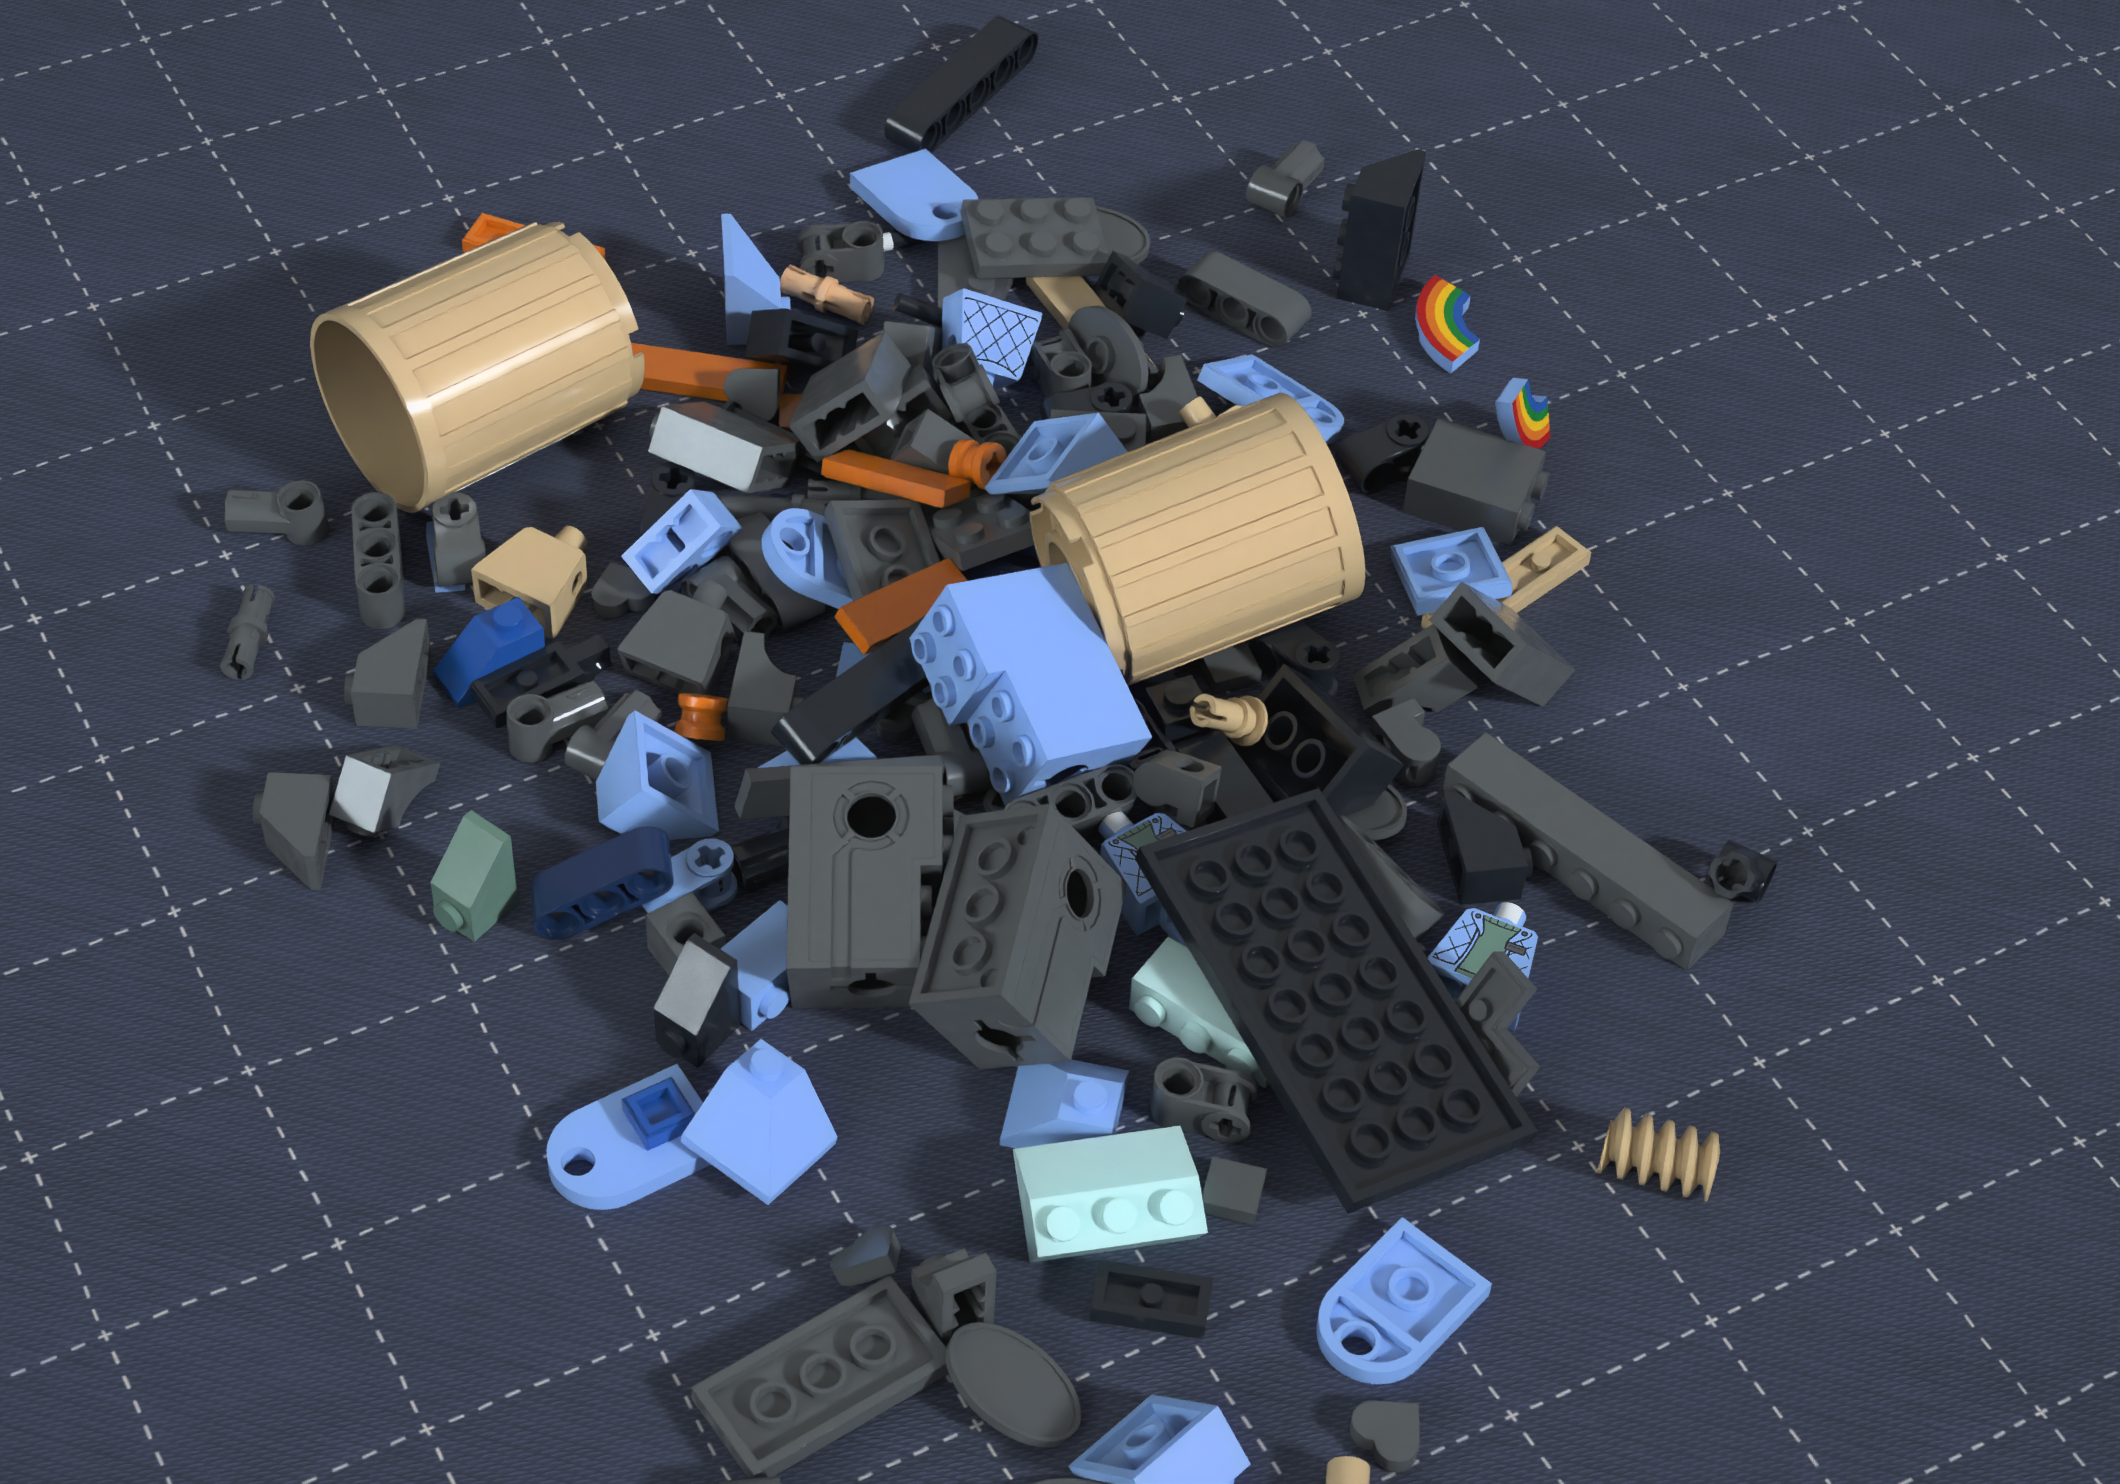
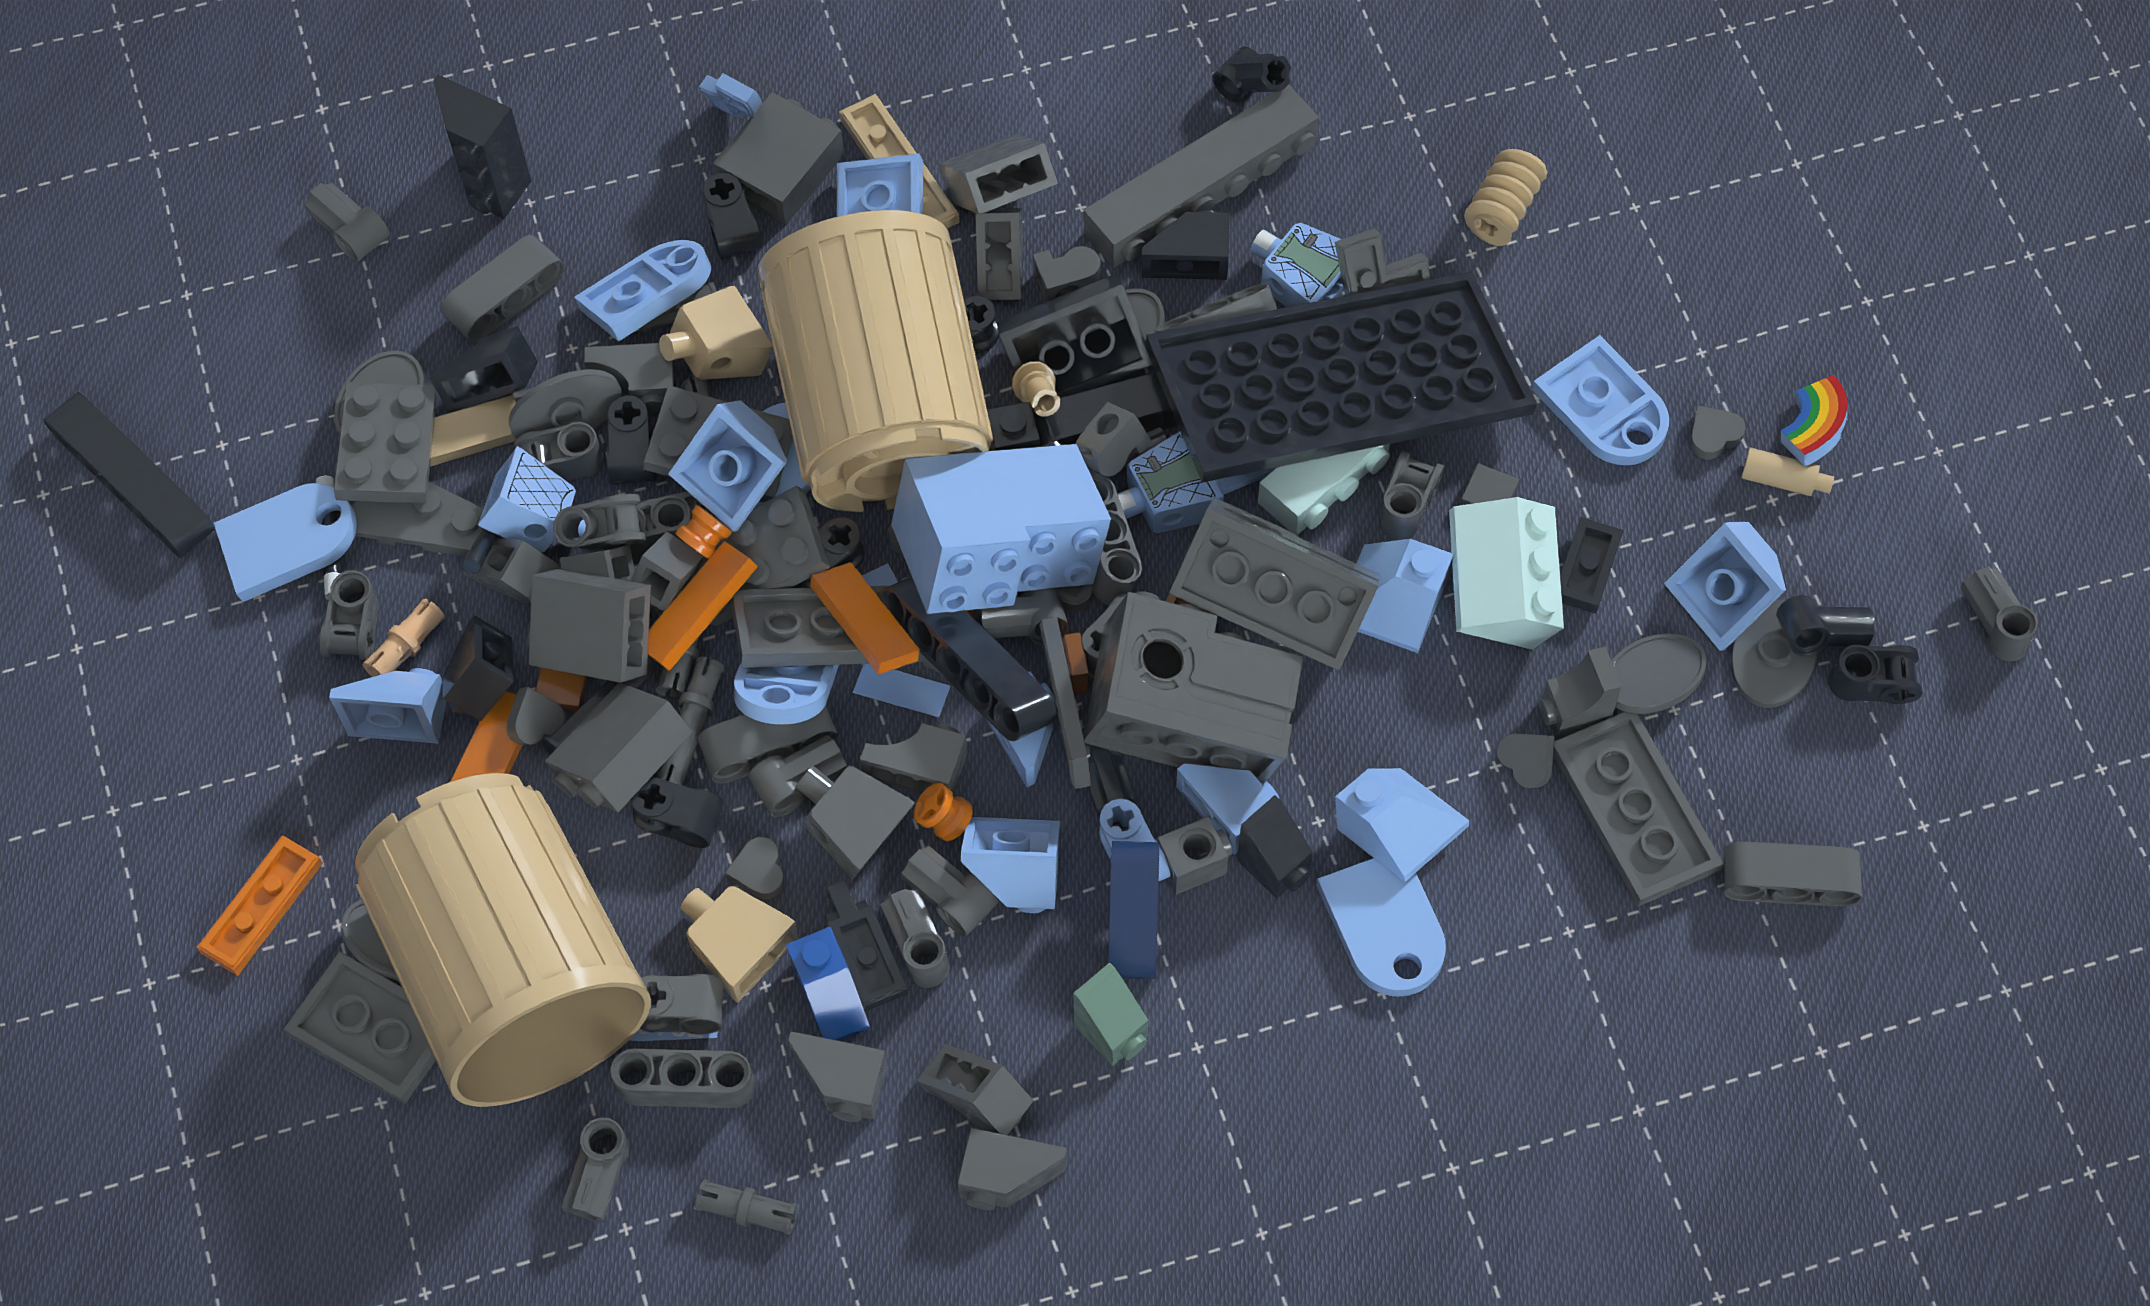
camera: 75 degrees left, 15 degrees up
(658, 1113) = (1373, 894): blue tile -> none
(682, 541) = (745, 795): light blue brick -> none
(1442, 326) = (568, 141): tile -> none

